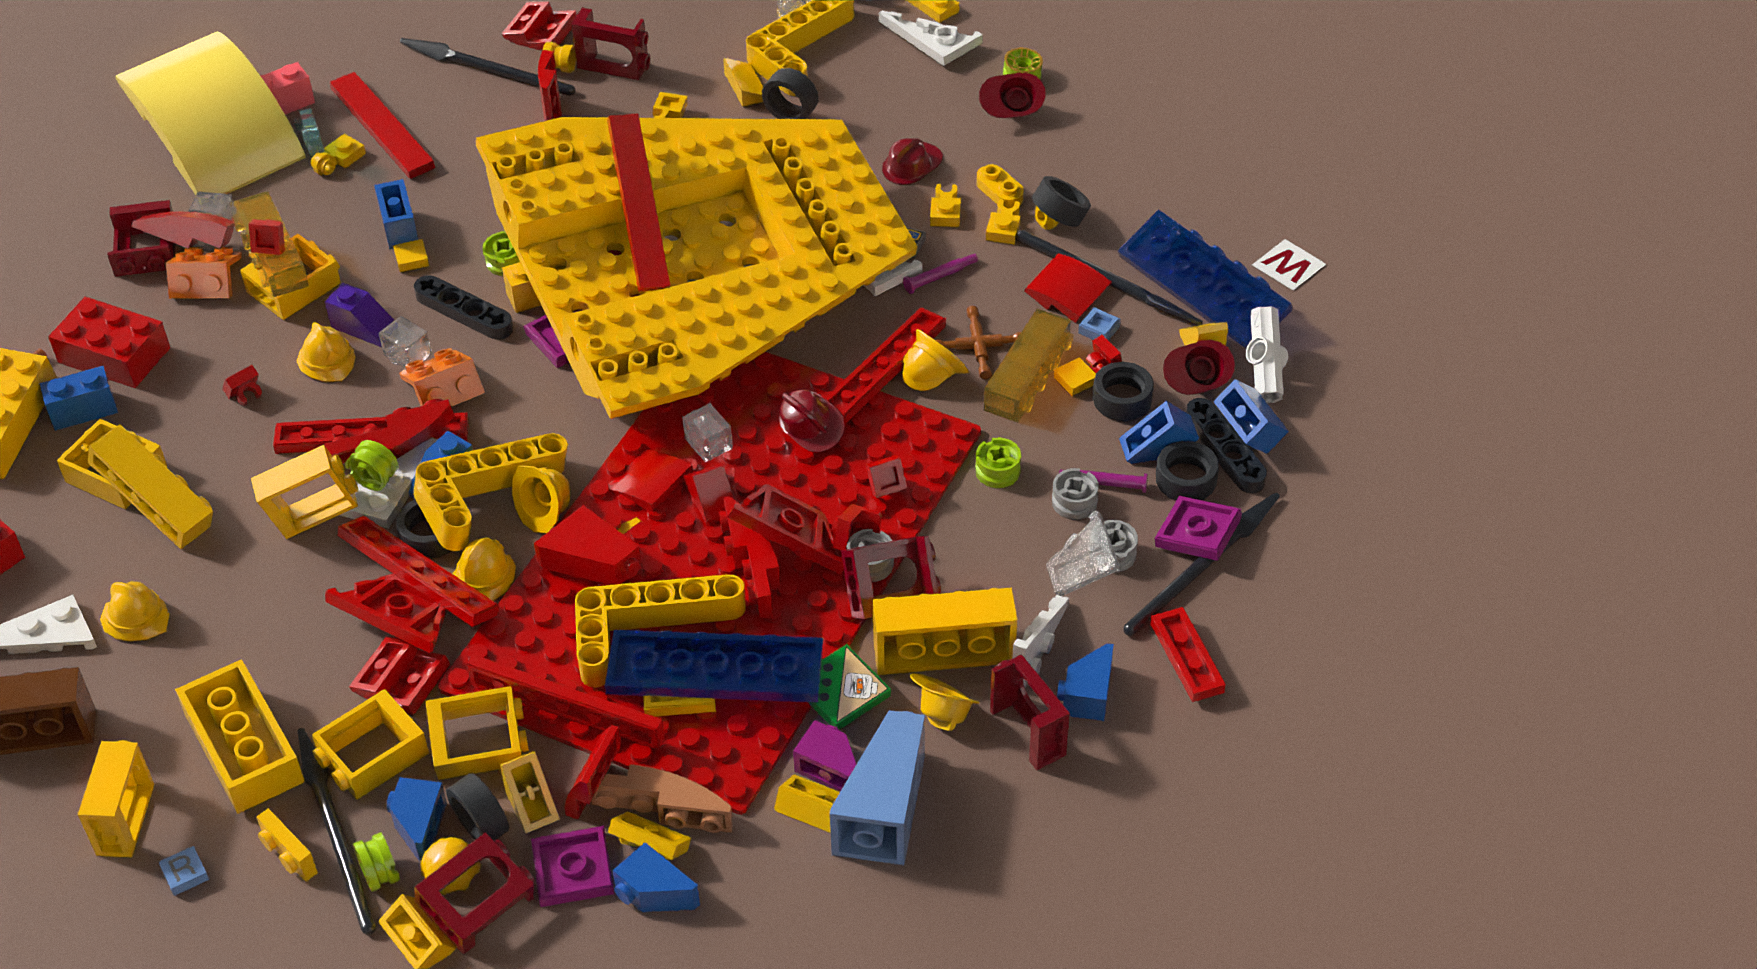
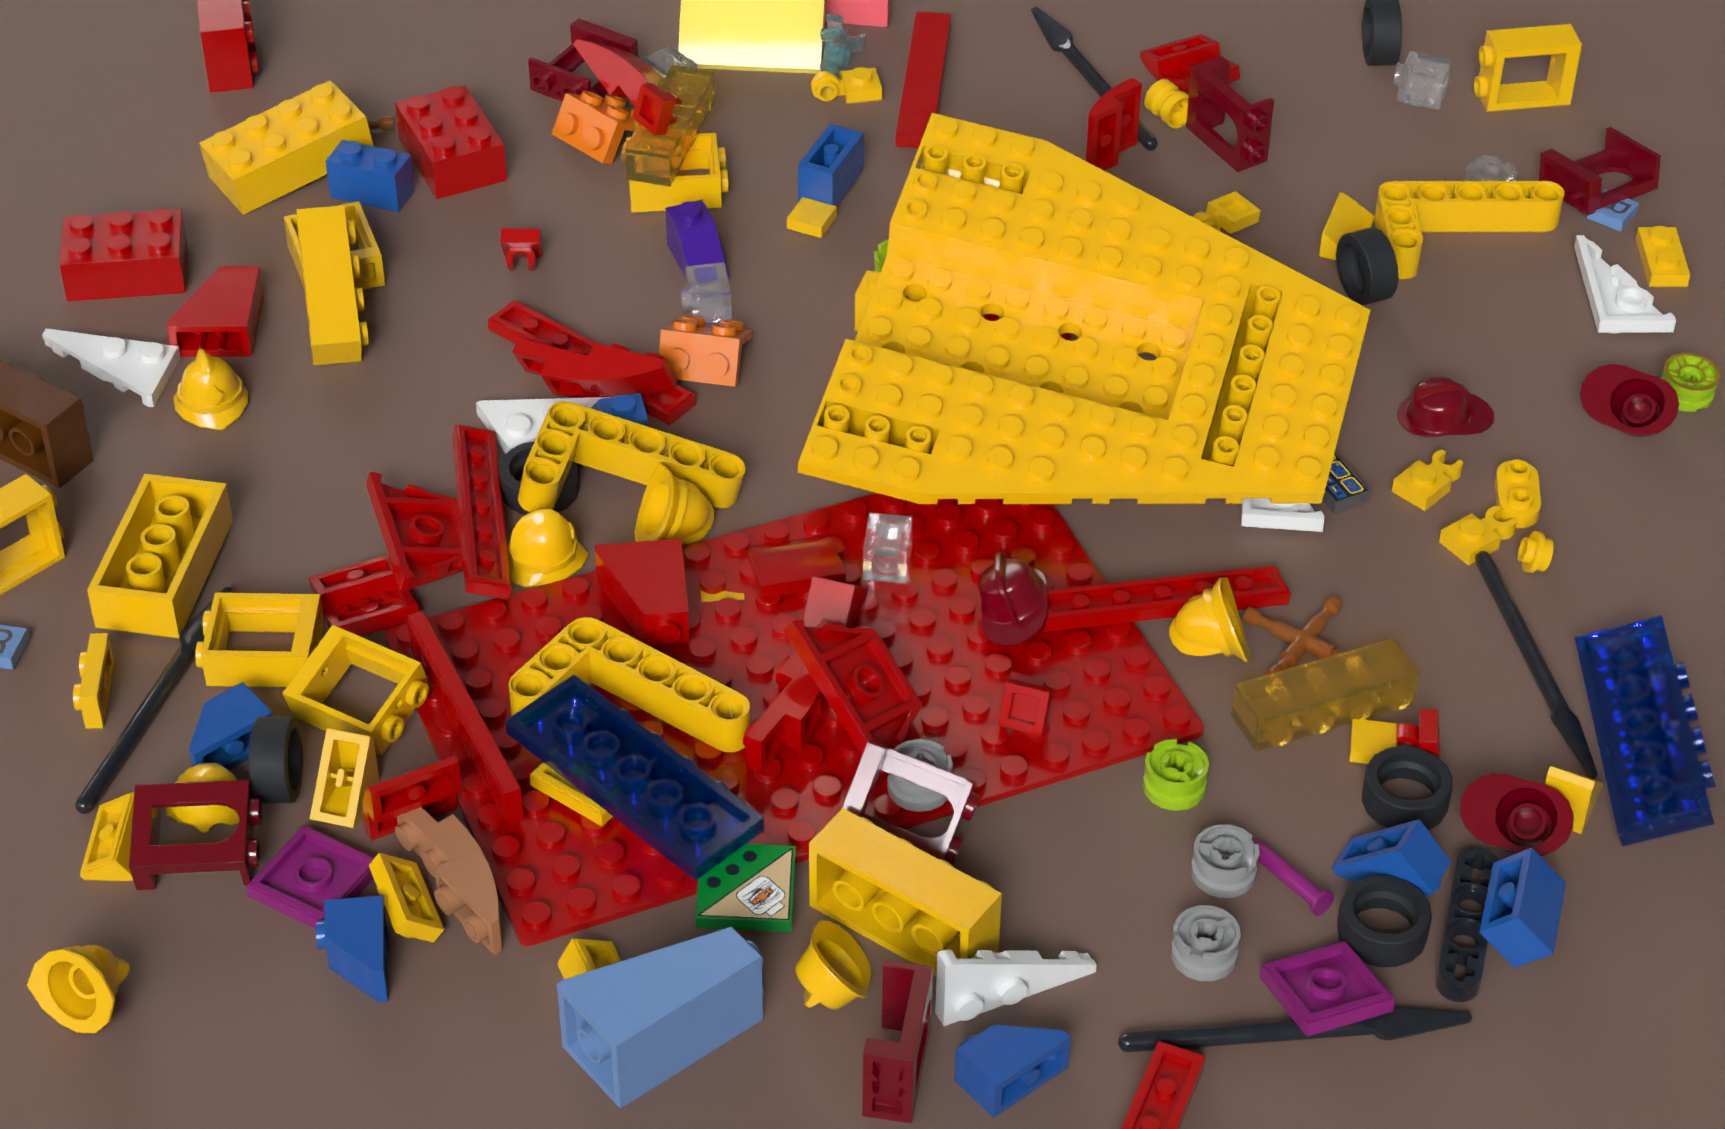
camera: 40 degrees right, 5 degrees down
(83, 554) = (220, 314): none -> red slope
(314, 509) = (426, 393): yellow window -> none
(326, 355) = (628, 263): yellow piece -> none
(372, 465) = (535, 382): lime wheel -> none
(376, 861) = (145, 746): lime wheel -> none
(434, 292) = (806, 294): black beam -> none
(638, 202) = (1039, 268): red tile -> none
(824, 756) = (653, 926): magenta slope -> none
(853, 520) = (931, 724): red bracket -> none
(936, 273) = (1341, 542): magenta piece -> none
(1061, 201) = (1559, 544): black tyre -> none
(1067, 286) = (1472, 643): red slope -> none
(1083, 558) = (1148, 929): clear wing -> none
(1098, 324) = (1465, 707): medium blue tile -> none
(1267, 353) = (1620, 852): white piece -> none

